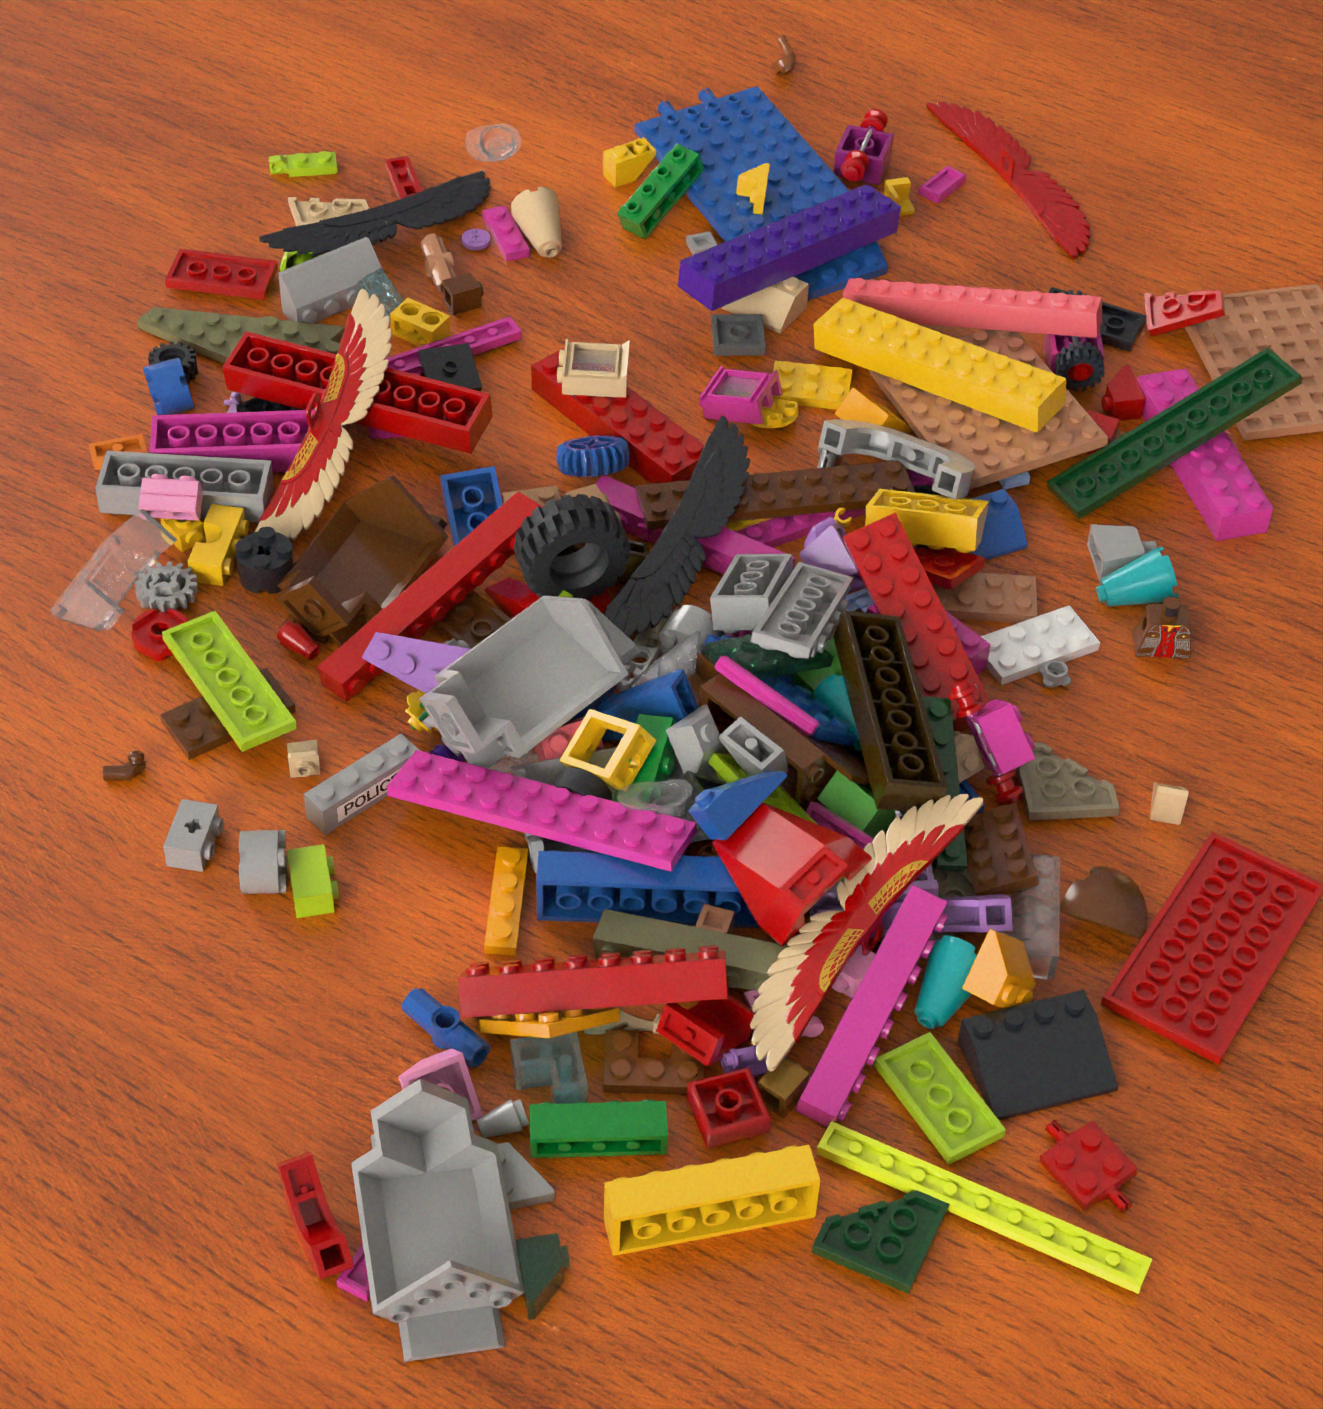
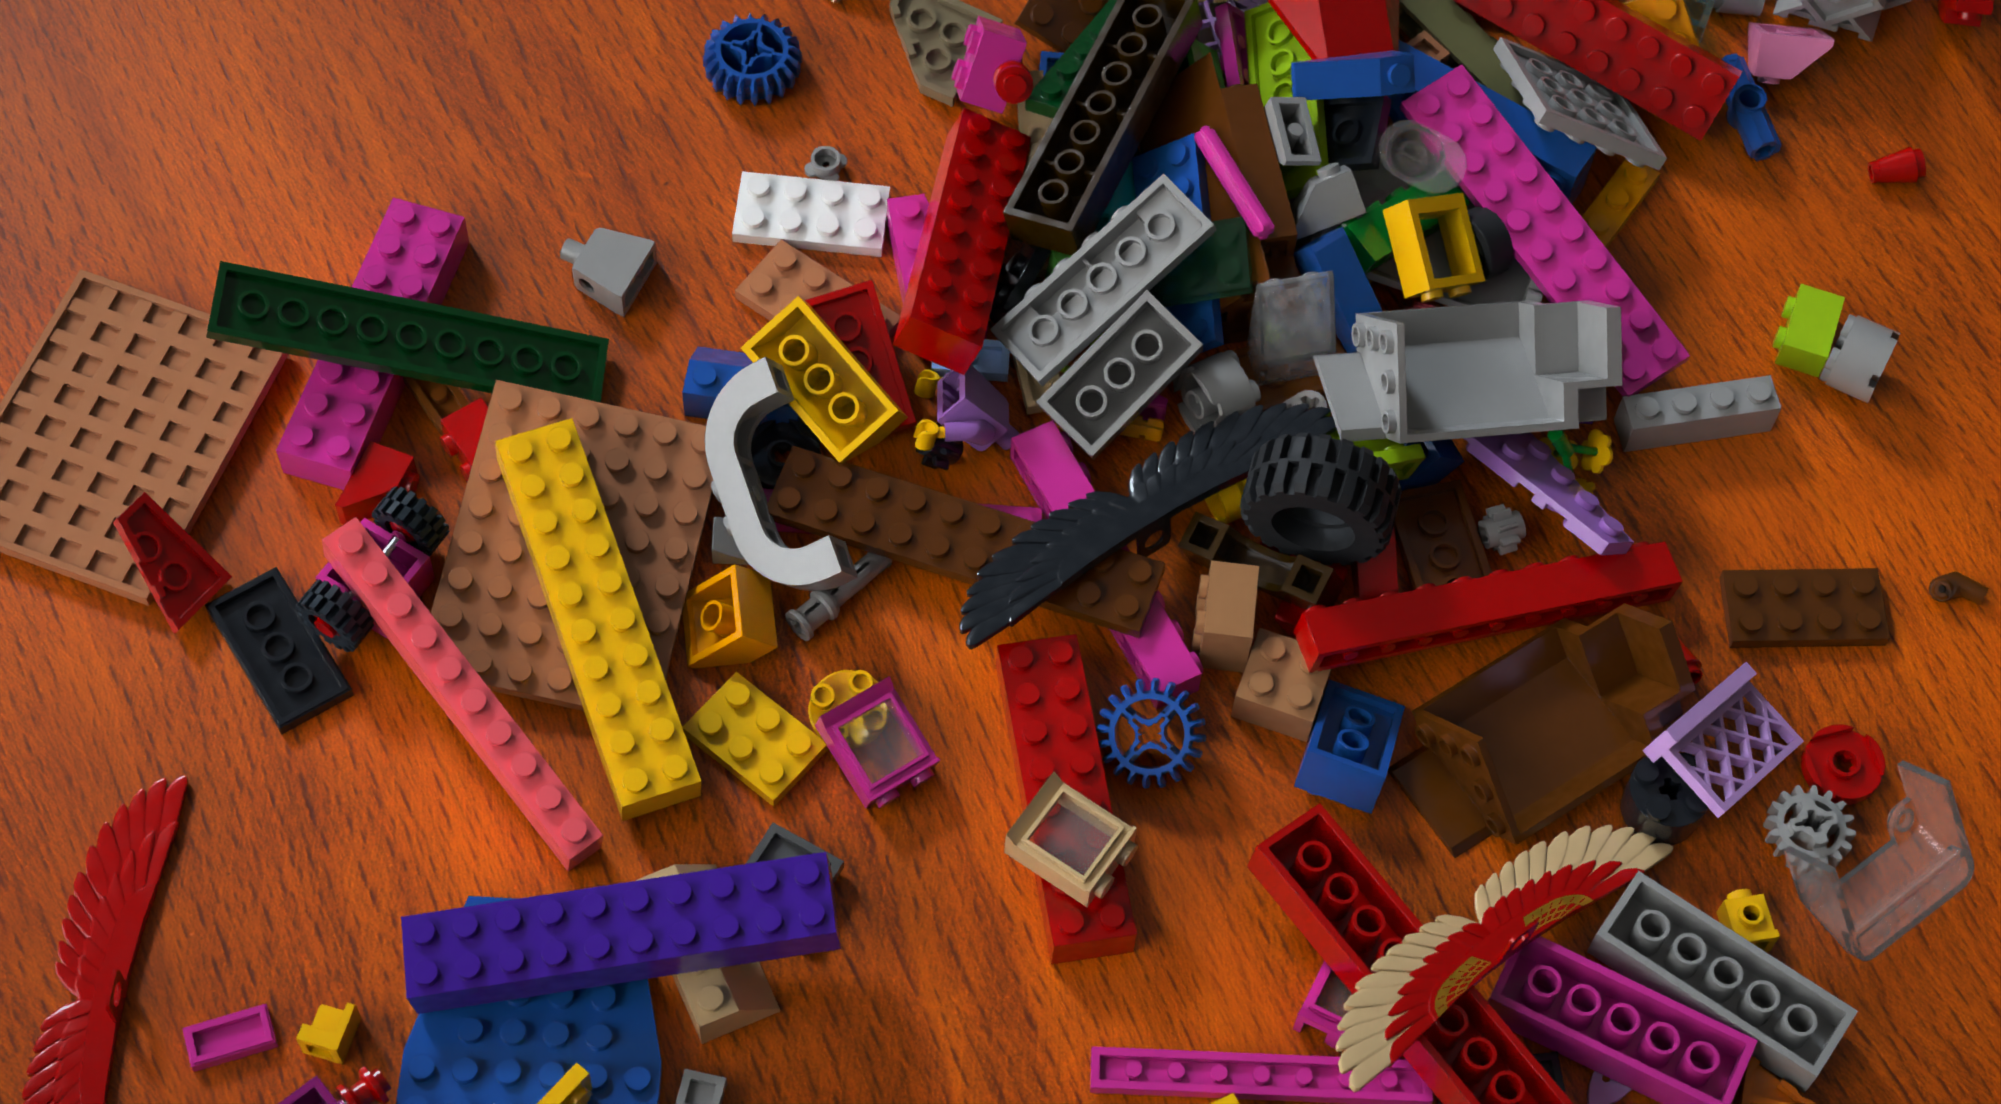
camera: 150 degrees left, 15 degrees up
(171, 497) = (1767, 919): bright pink brick -> none
(193, 835) = (1915, 450): light grey brick -> none
(215, 558) = (1732, 841): yellow arch -> none
(229, 681) = (1798, 619): lime plate -> none
(265, 590) = (1698, 722): none -> lavender fence
(297, 1043) = (1898, 167): none -> red cone
(303, 758) = (1744, 493): tan bracket -> none
(450, 365) = (1241, 1021): black plate -> none
(570, 904) = (1578, 105): none -> light grey plate
(1140, 581) = (634, 204): teal cone -> none
(1156, 704) = (752, 59): none -> blue gear
(1163, 631) = (670, 132): reddish brown torso -> none

